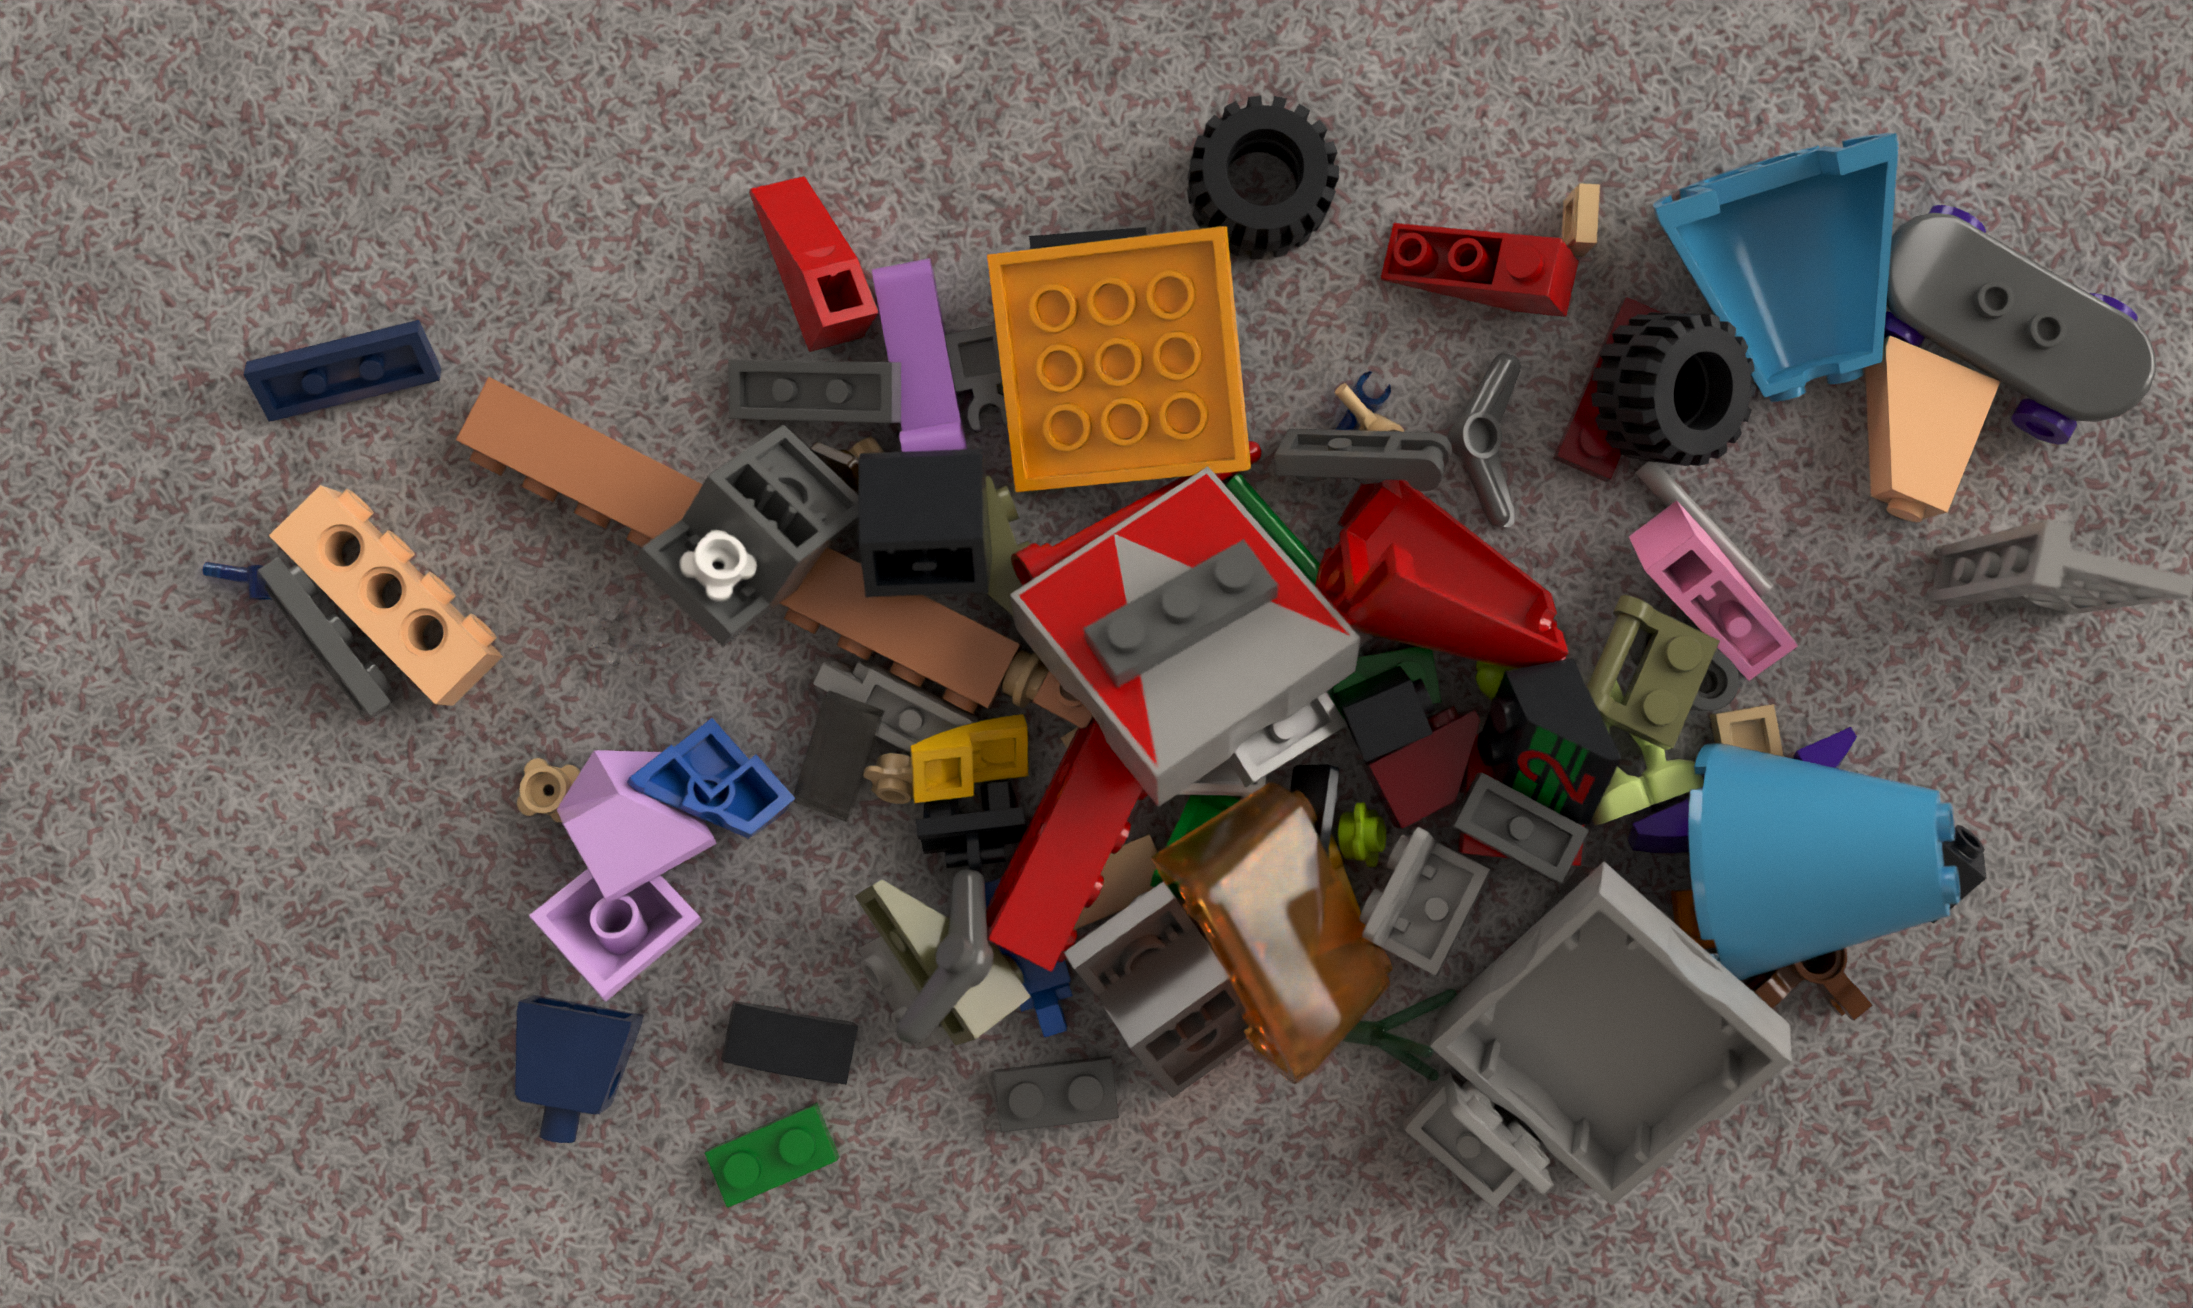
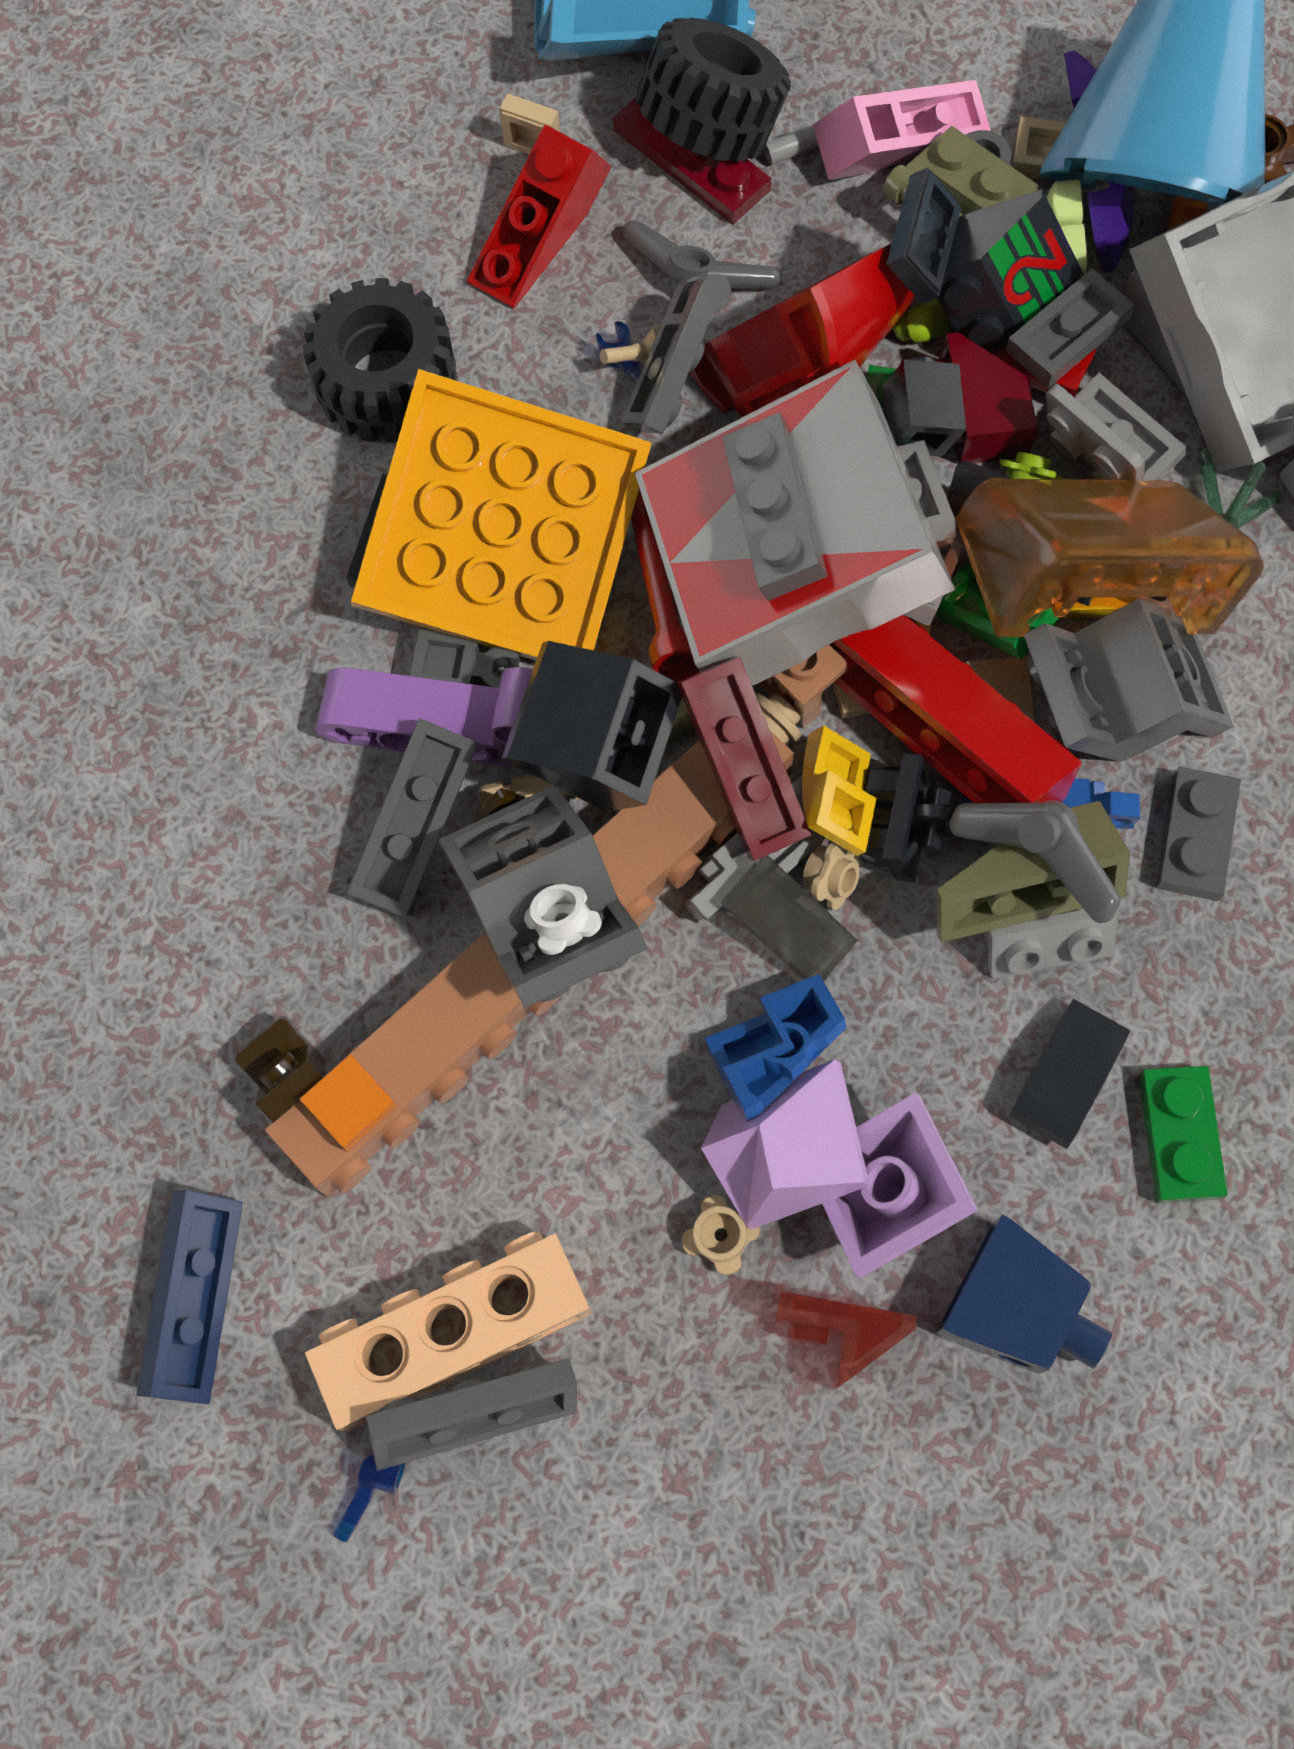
camera: 65 degrees left, 15 degrees down
(506, 936) = (862, 1330): none -> clear red slope
(530, 438) = (348, 1102): none -> orange tile
(554, 374) = (281, 1066): none -> dark brown bracket
(814, 264) = (293, 775): red slope -> none
(949, 666) = (744, 758): none -> dark red plate
(1536, 658) = (924, 235): none -> black plate

